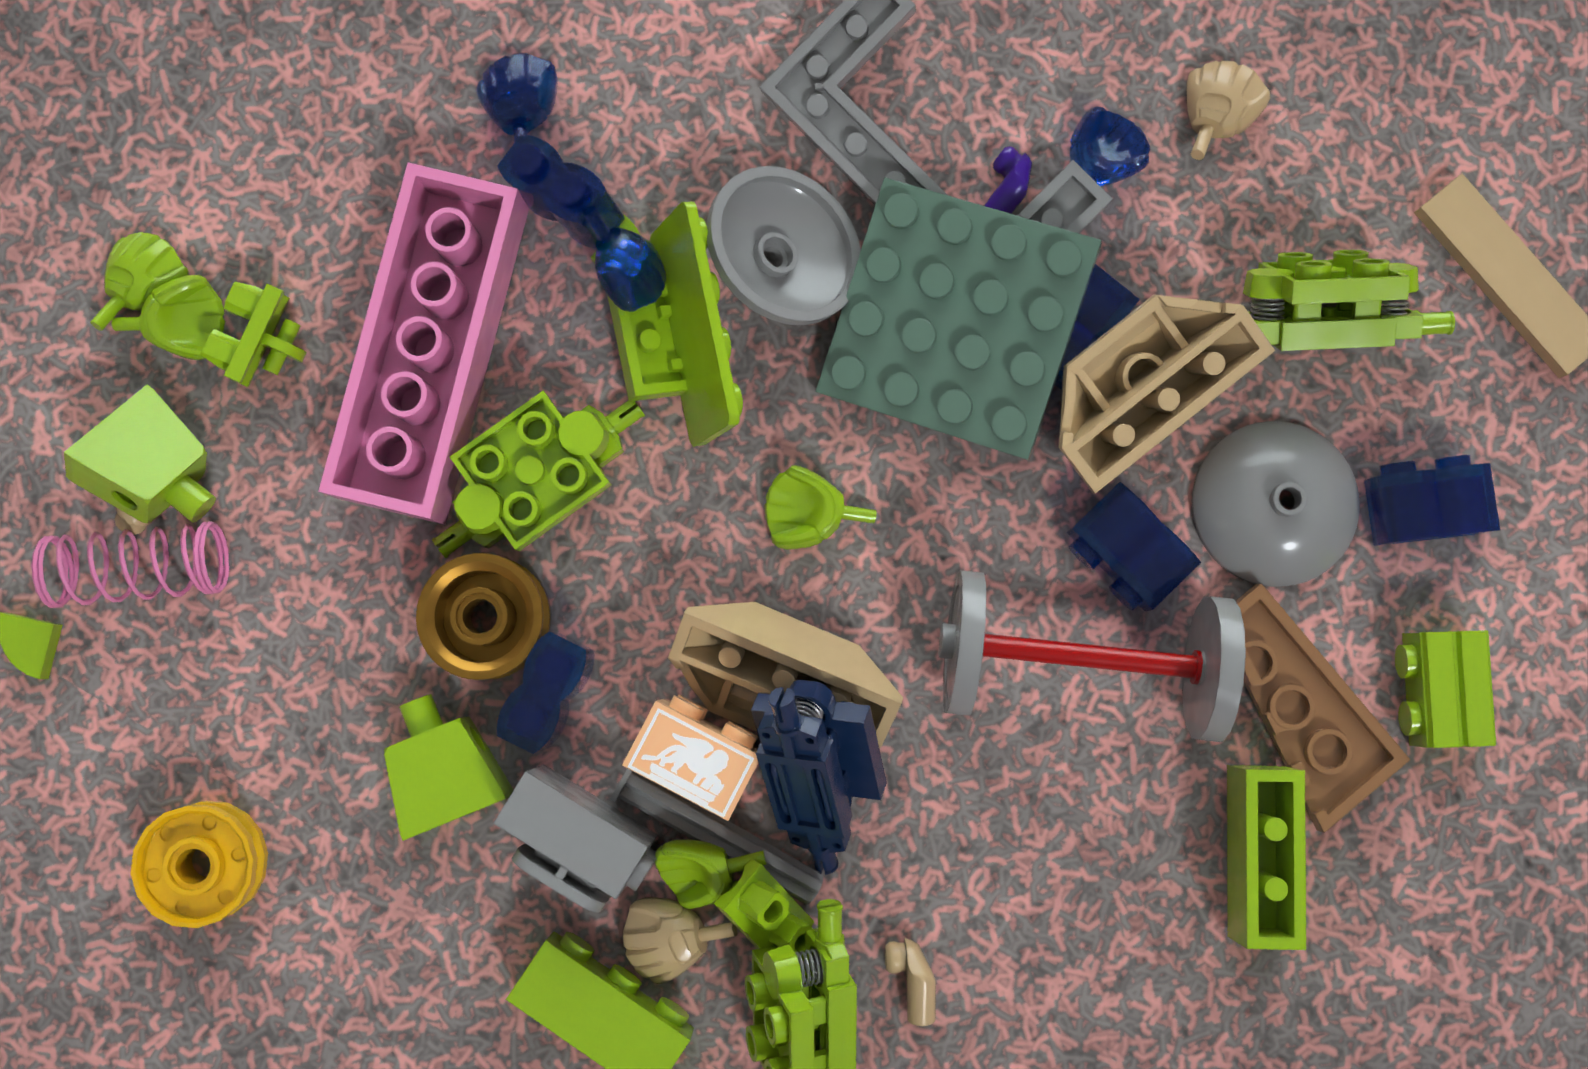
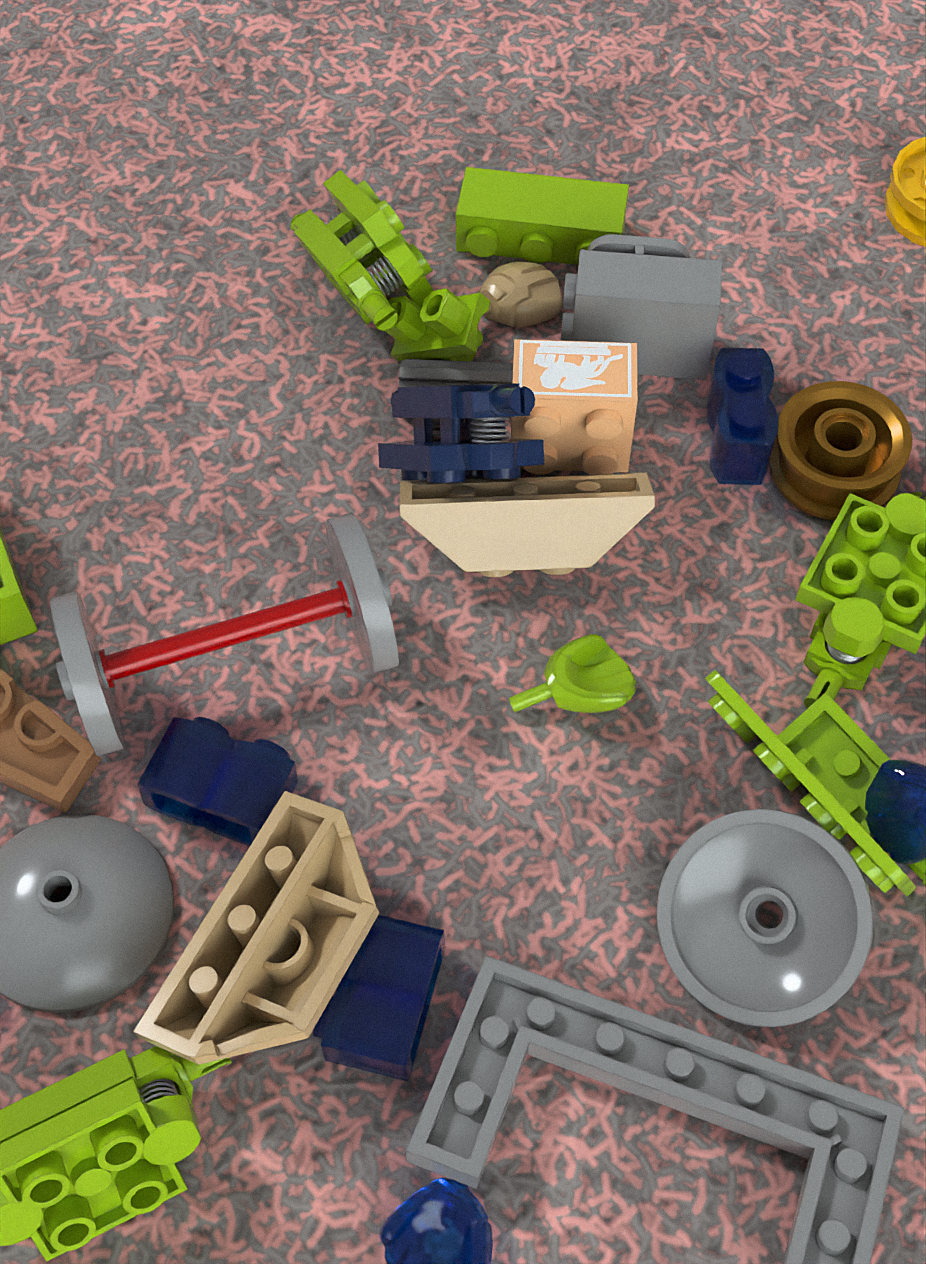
camera: 155 degrees right, 25 degrees down
(440, 770) = (797, 324): lime torso -> none
(699, 870) = (499, 341): lime piece -> none
(921, 982) = (273, 345): tan arm -> none
(958, 317) = (526, 933): sand green plate -> none
(1016, 174) = (533, 1131): dark purple arm -> none

